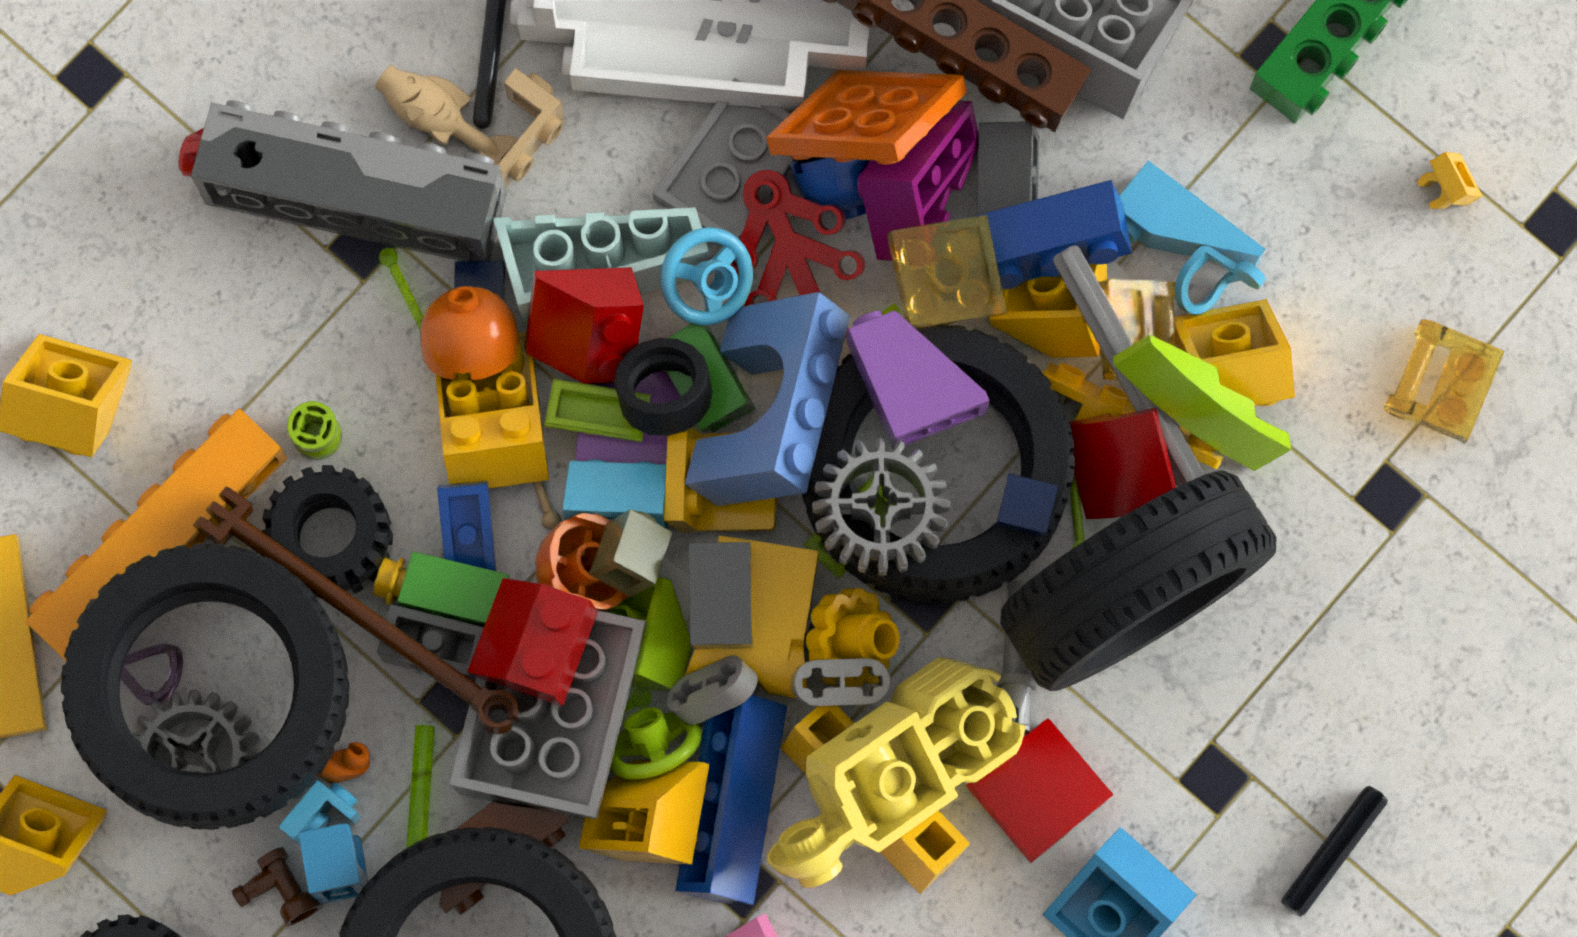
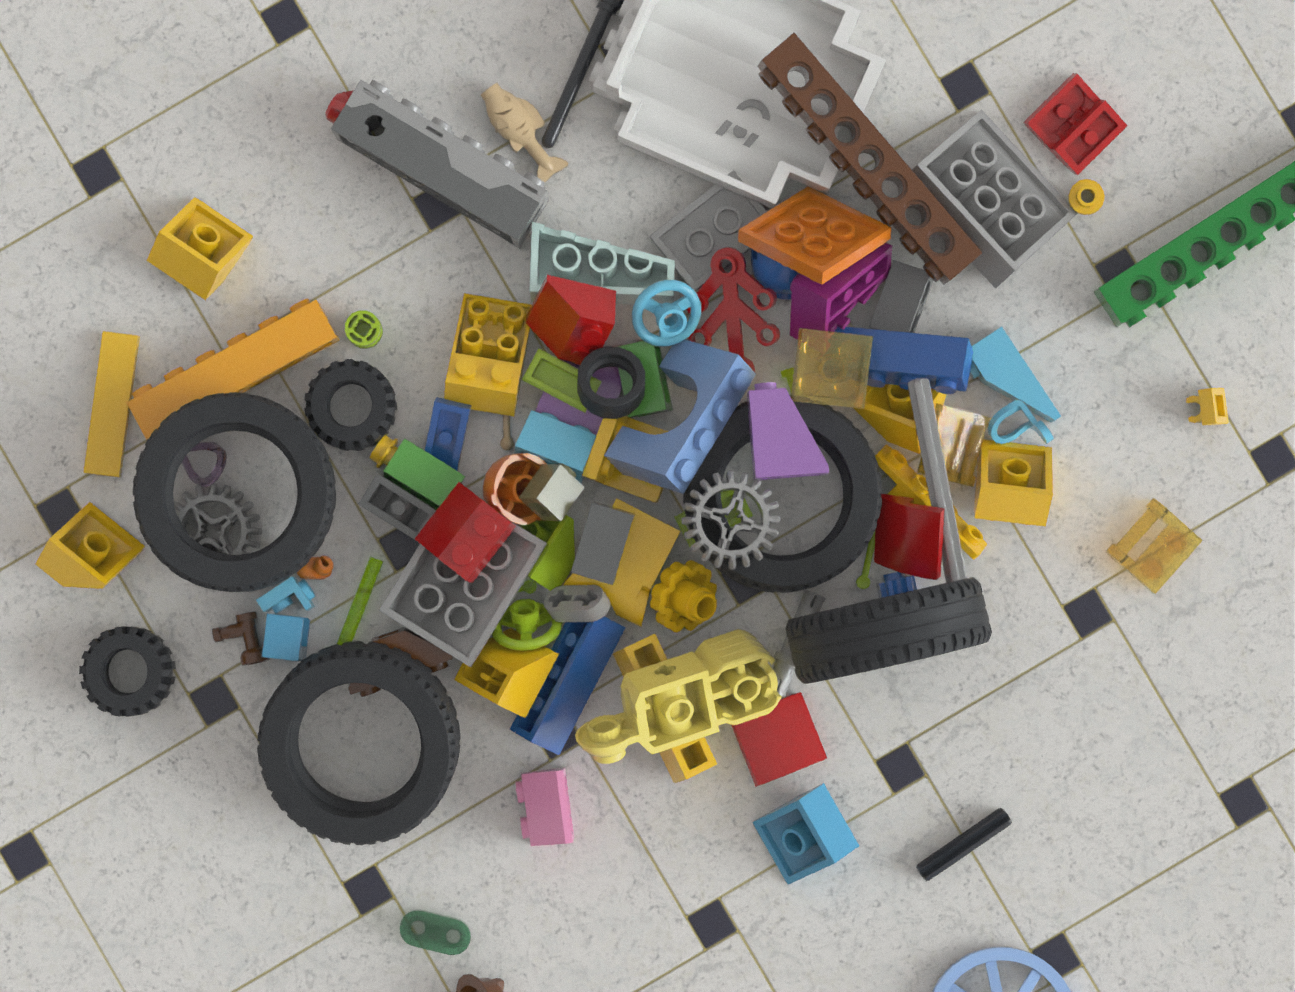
camera: 15 degrees right, 10 degrees up
(235, 524) = (288, 383): reddish brown hinge -> none
(389, 258) = (452, 221): clear neon green hinge -> none
(468, 333) = (490, 298): orange cylinder -> none
(481, 274) = (508, 262): dark blue tile -> none
(536, 98) = (590, 138): tan bracket -> none
(840, 694) = (663, 636): light grey beam -> none
(1027, 505) = (831, 549): dark blue tile -> none
(1195, 399) = (974, 511): lime slope -> none

